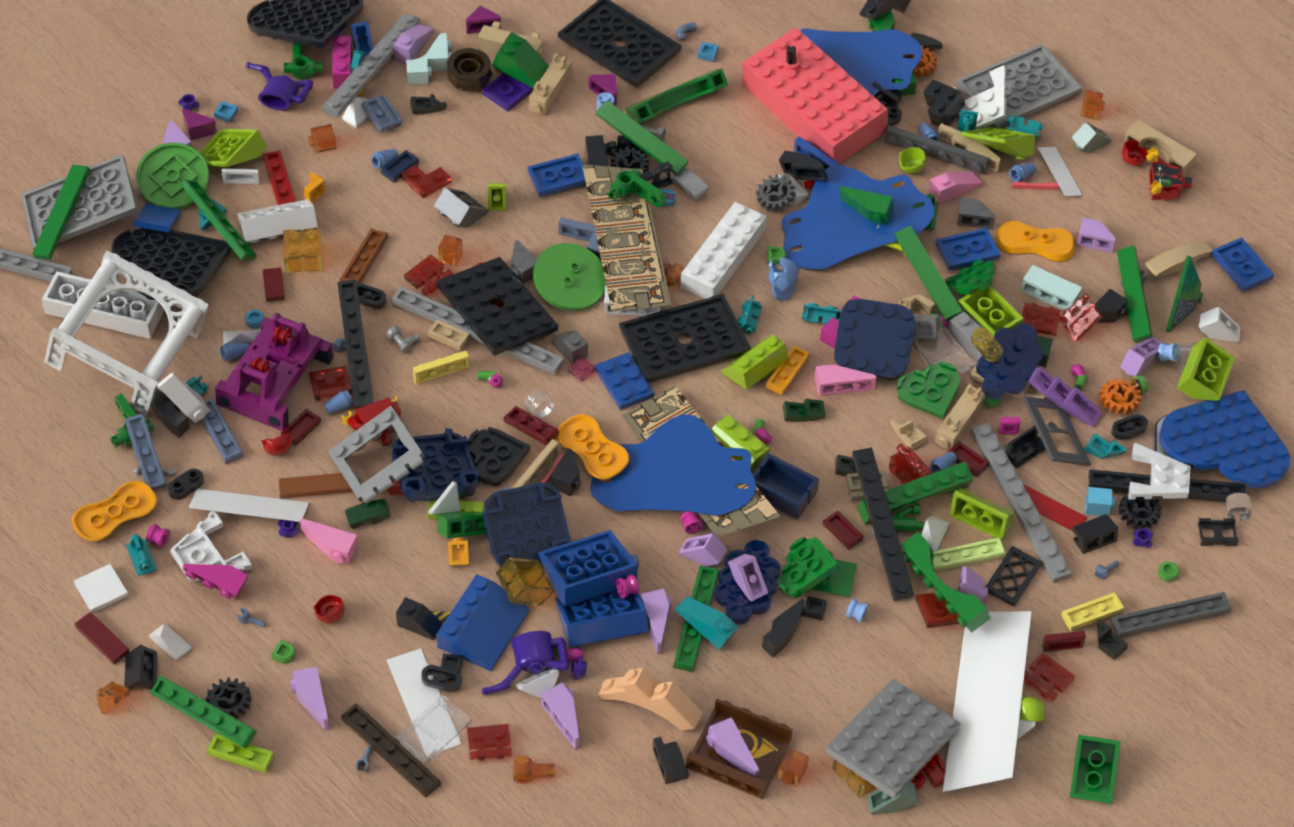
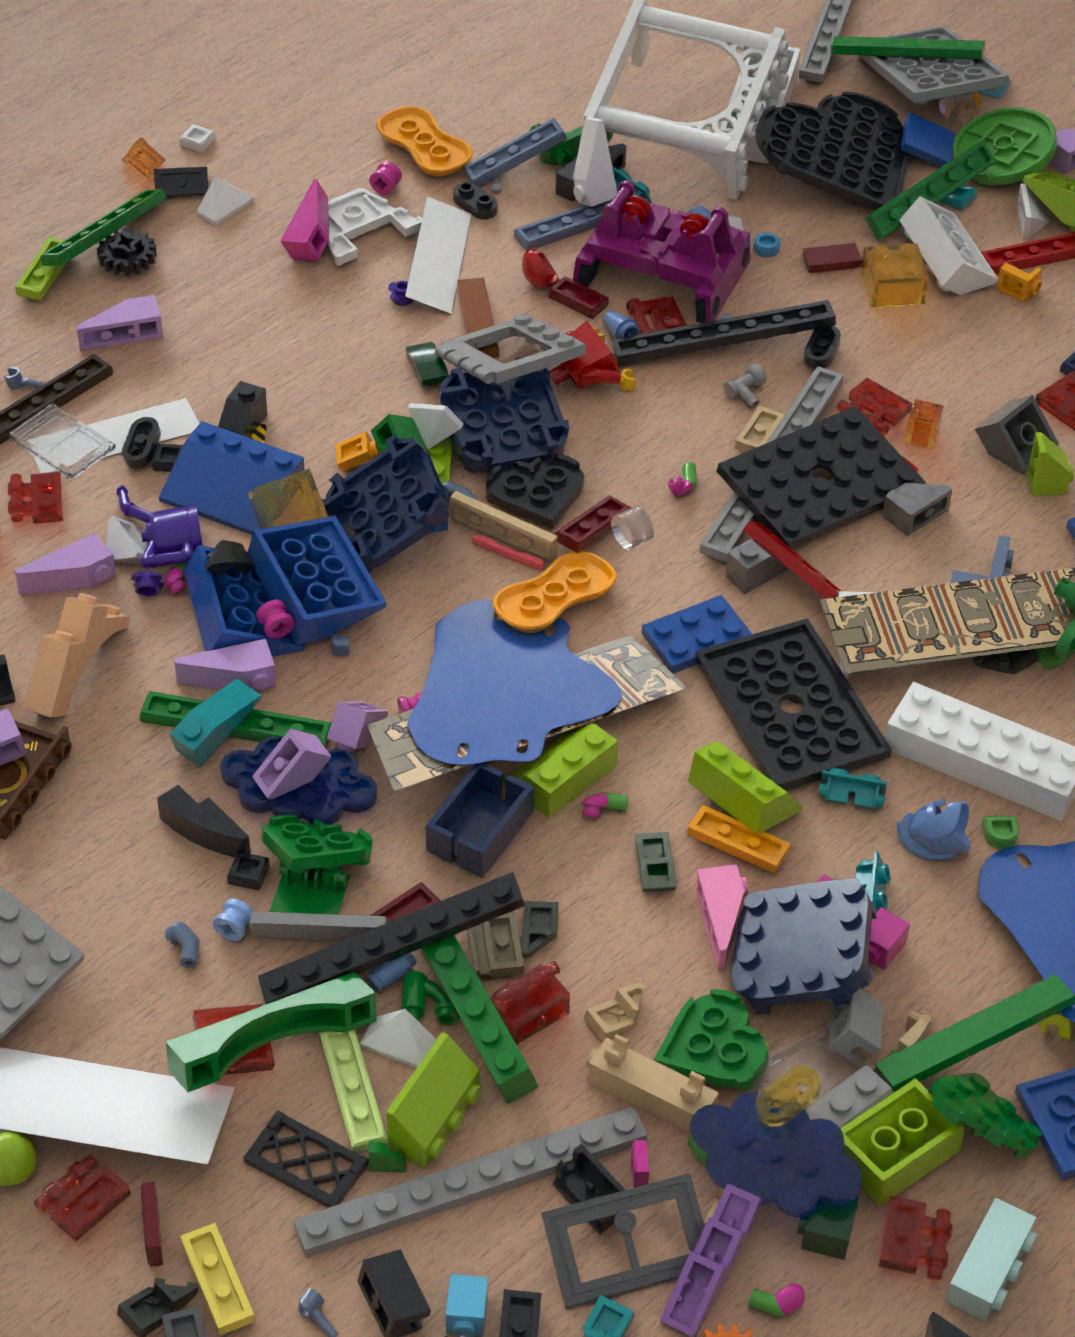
camera: 90 degrees right, 5 degrees down
(84, 663) = (197, 138): none -> white tile
(100, 588) = (308, 142): white tile -> none
(102, 638) = (233, 148): dark red tile -> none
(140, 555) = (346, 170): teal hinge -> none
(247, 618) = (258, 265): sand blue hand -> none
(284, 652) = (202, 301): bright green tile -> none
(329, 609) = (262, 332): red hair -> none
(331, 541) = (375, 328): bright pink slope -> none
(365, 256) = (899, 343): dark orange tile -> none
(441, 367) = (695, 423): light yellow plate -> none
(566, 474) = (503, 563): black slope -> none
(569, 277) = (891, 549): bright green plate -> none
(573, 324) = (792, 560): none -> red tile
(580, 609) = (228, 555): none -> pearl dark grey slope
(581, 369) = (715, 582): clear pink plate -> none
(672, 273) = (934, 677): clear orange pin -> none
(864, 564) = (311, 926): none -> light grey tile
(871, 635) = (182, 934): none -> sand blue arm
(943, 462) = (547, 1057): medium blue cone -> none
(972, 584) = (263, 1074): lavender slope -> none
(974, 461) = (566, 1102): dark red tile -> none
(1012, 538) = (385, 1160): none -> green tile
(1054, 510) = (459, 1239): red sticker -> none
(1083, 320) = (915, 1299): clear red plate -> none

